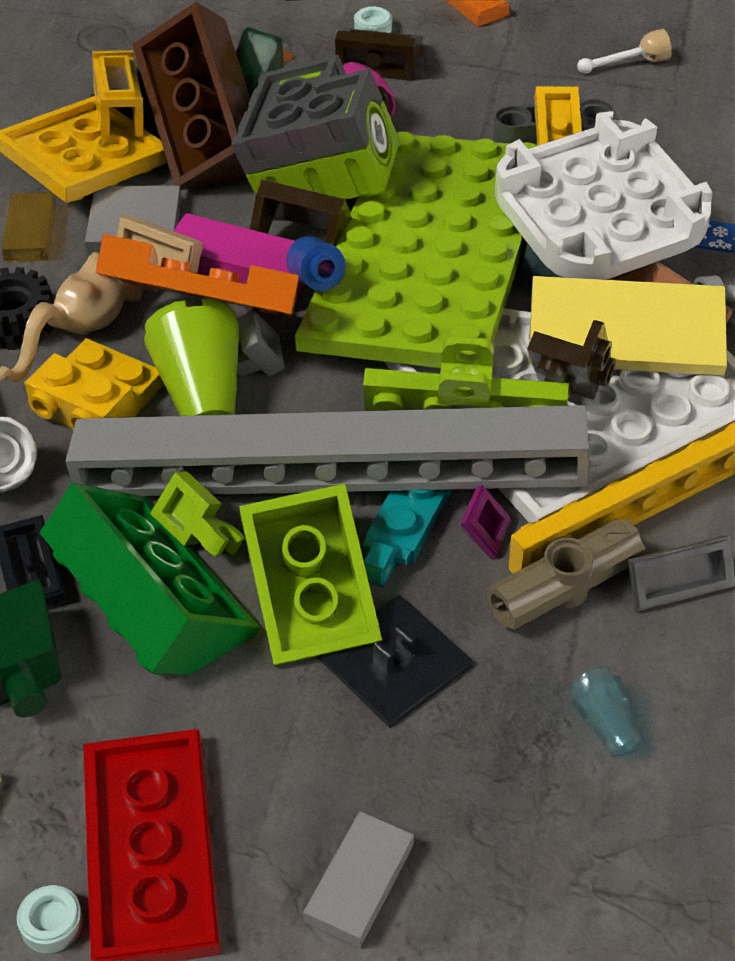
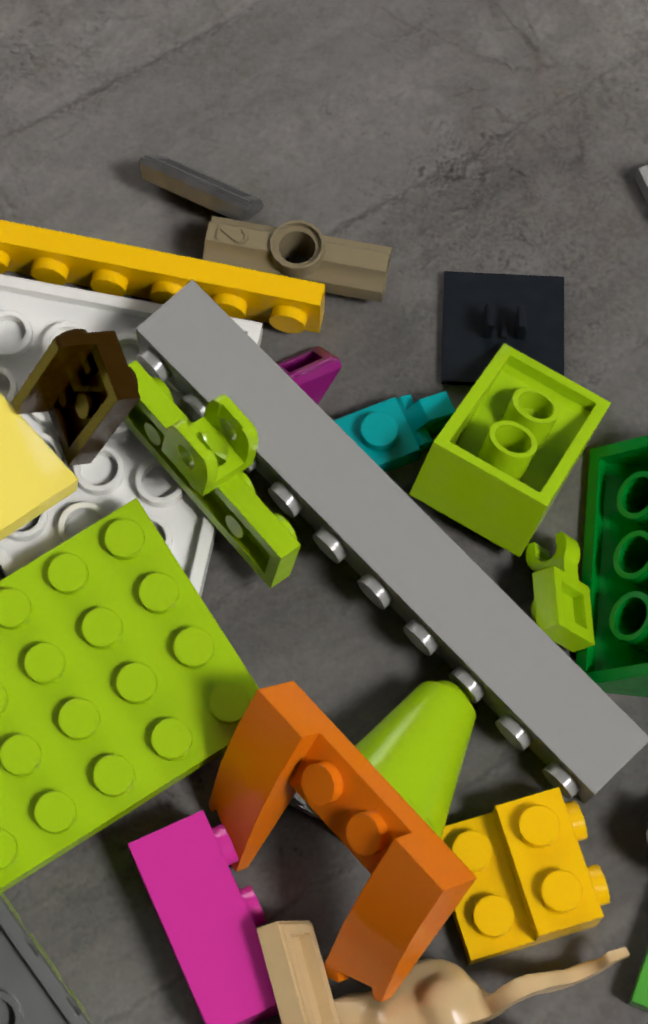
camera: 140 degrees left, 20 degrees up
(299, 207) = (74, 919): dark brown tile -> none
(316, 263) = (174, 769): blue brick -> none
(605, 708) = (394, 139): clear light blue cone -> none

